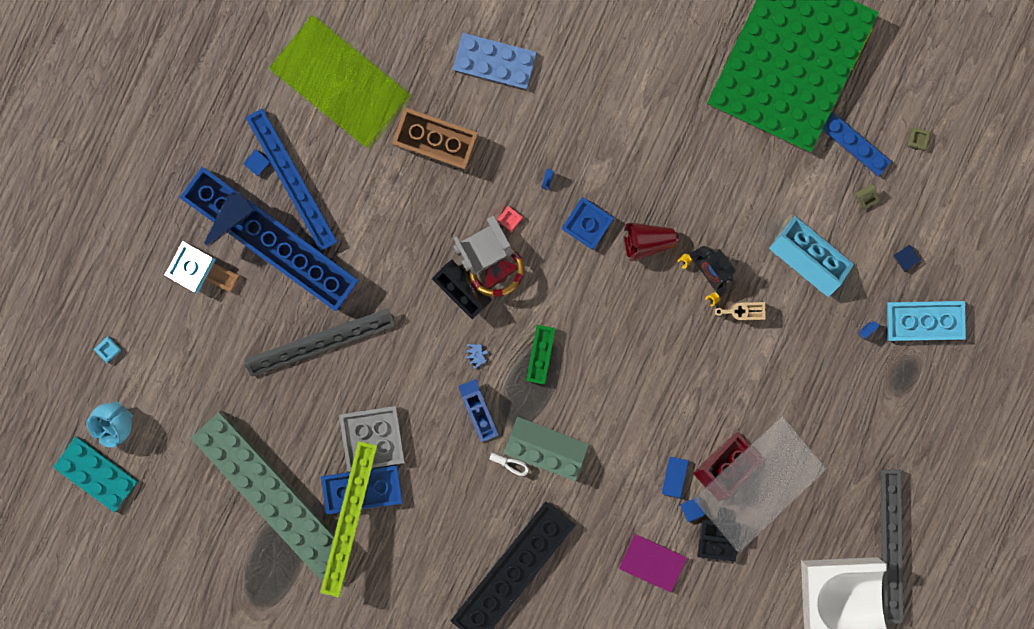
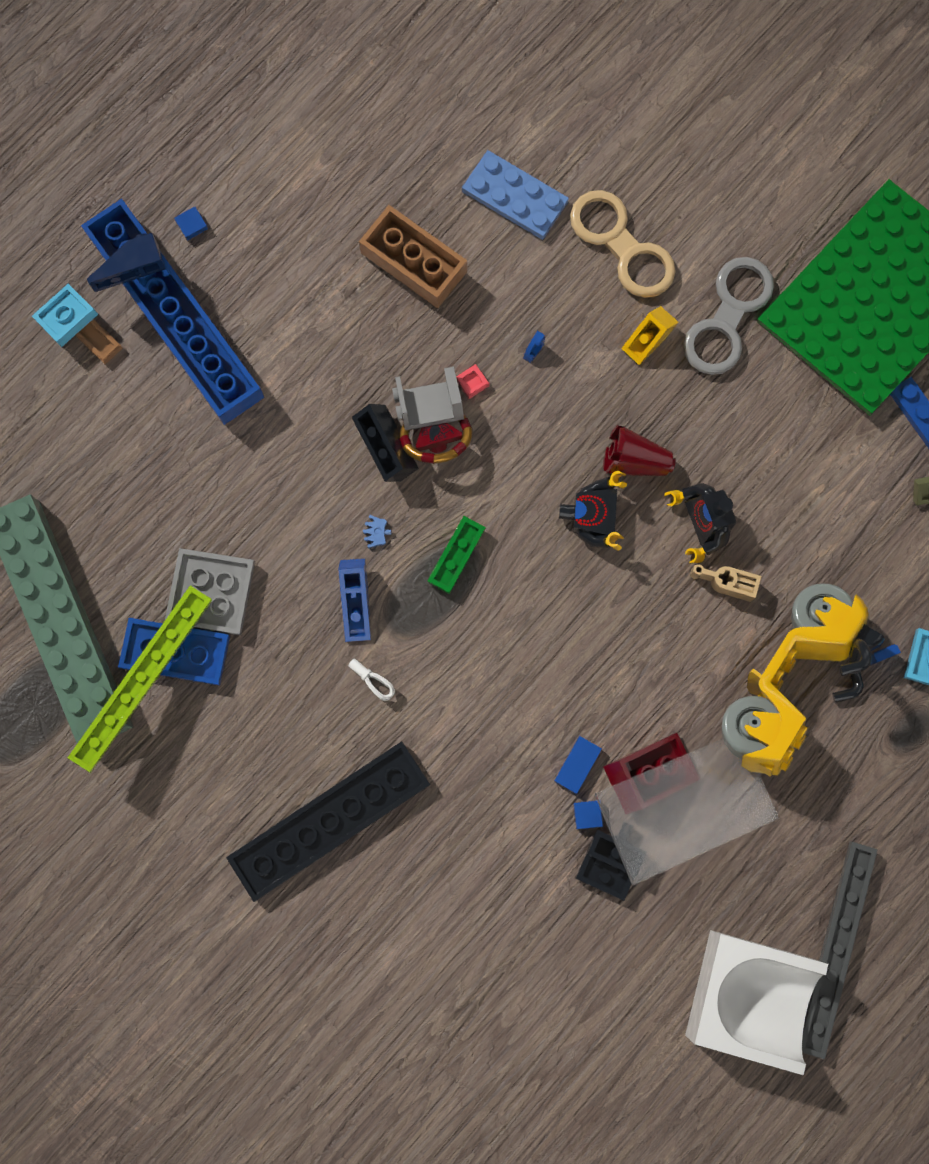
camera: 20 degrees right, 10 degrees down
(291, 179) = (225, 255): blue plate -> none
(319, 342) = (187, 453): dark grey plate -> none
(339, 81) = (322, 163): clear neon green piece -> none
(546, 448) = (424, 674): sand green slope -> none
(587, 75) = (622, 244): none -> tan bar
(587, 223) = (566, 414): blue plate -> none
(630, 142) = (649, 334): none -> yellow slope
(631, 292) = (596, 512): none -> black torso
(652, 562) = (514, 868): magenta tile -> none
(684, 107) = (728, 315): none -> light grey bar
(811, 256) = (835, 540): medium azure slope -> none
(822, 323) = (827, 628): none -> yellow piece

